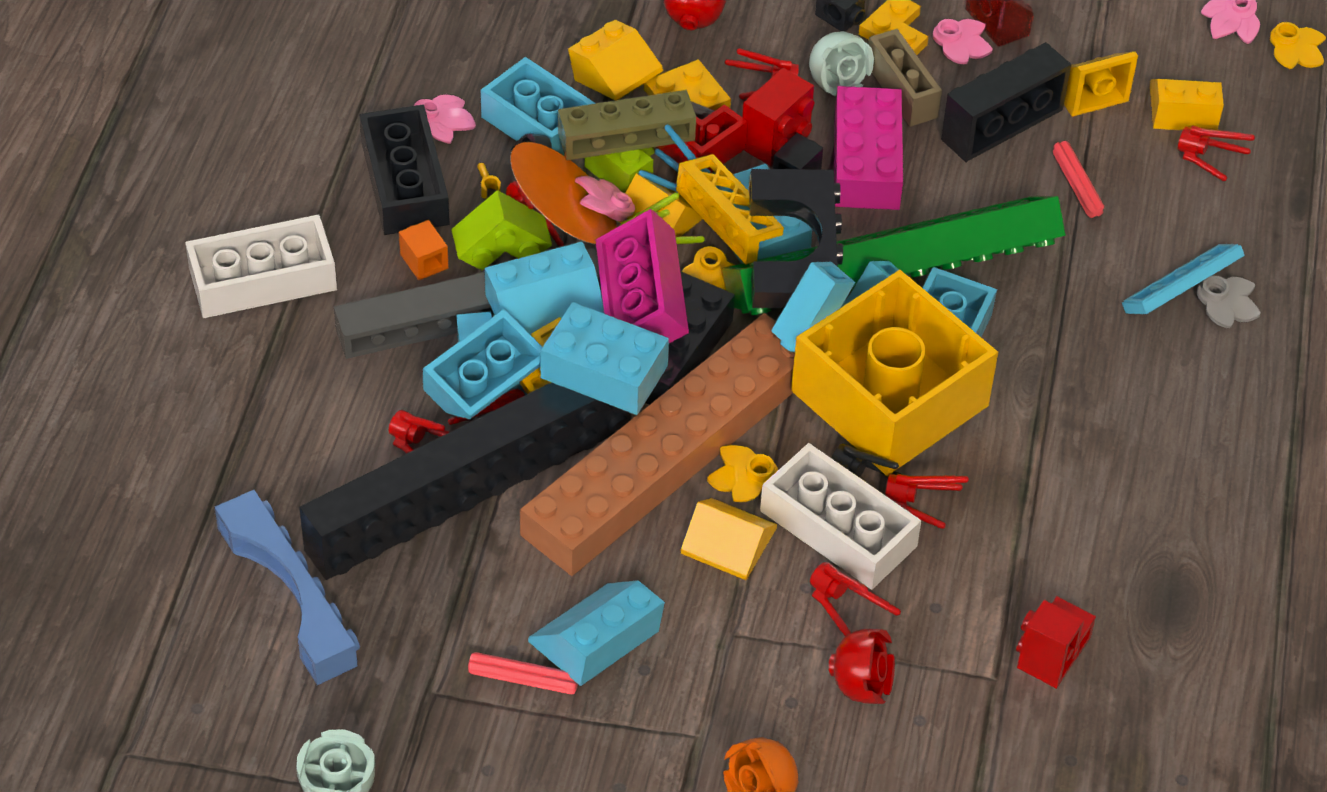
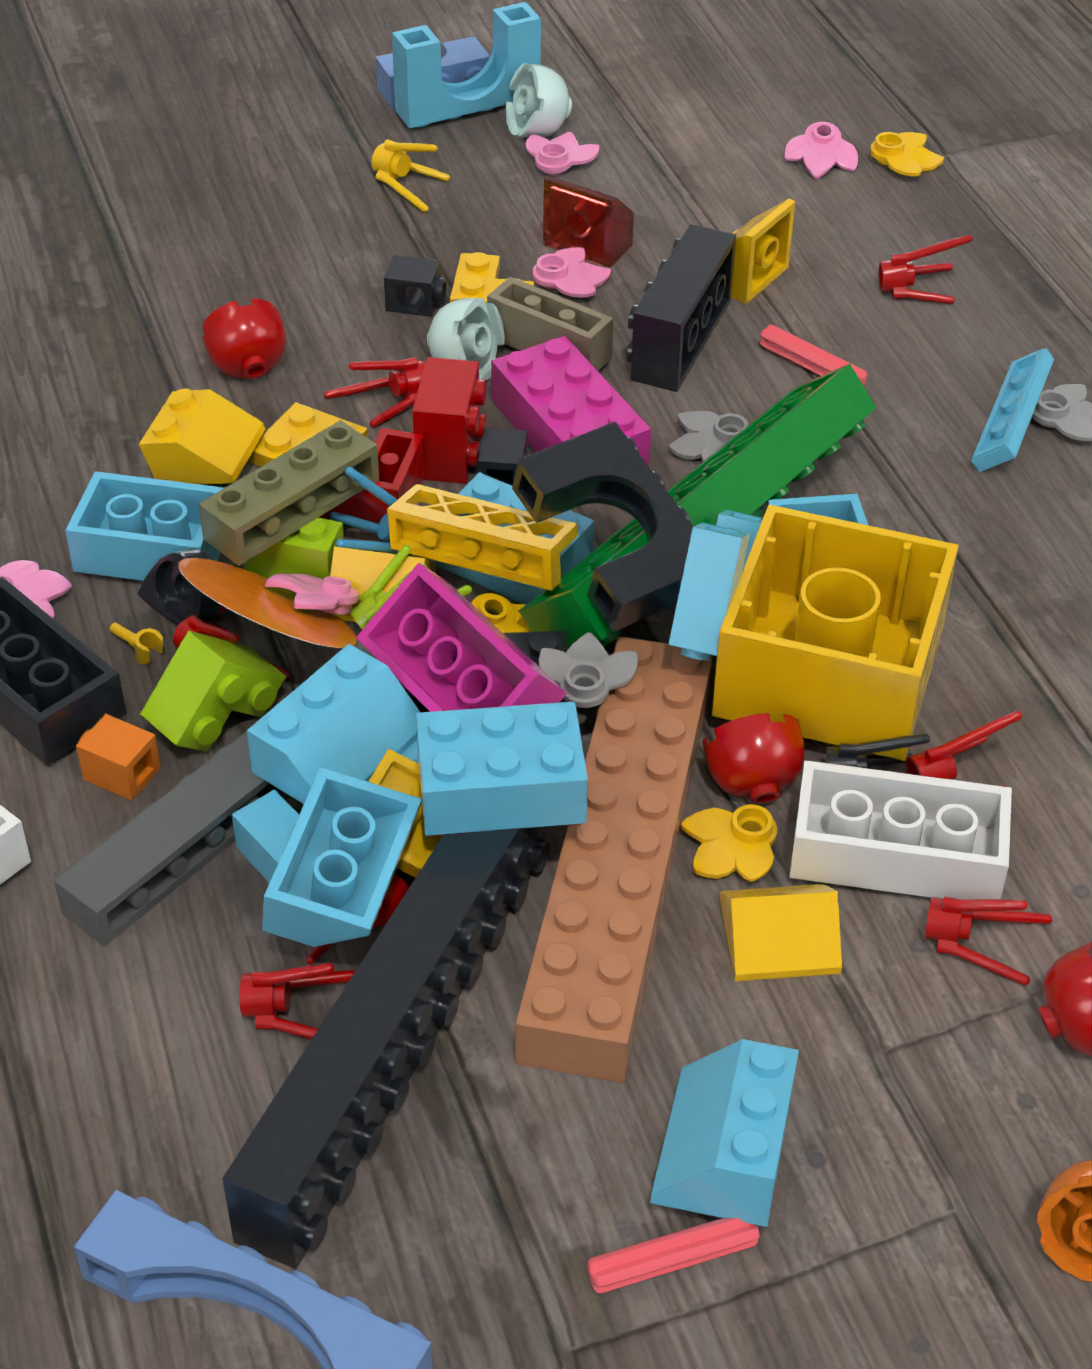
camera: 30 degrees left, 5 degrees down
(721, 325) = (588, 670): none -> light grey plate
(790, 428) = (756, 756): none -> red cylinder
(956, 199) = (705, 433): none -> light grey plate
(1185, 104) = (854, 242): yellow slope -> none

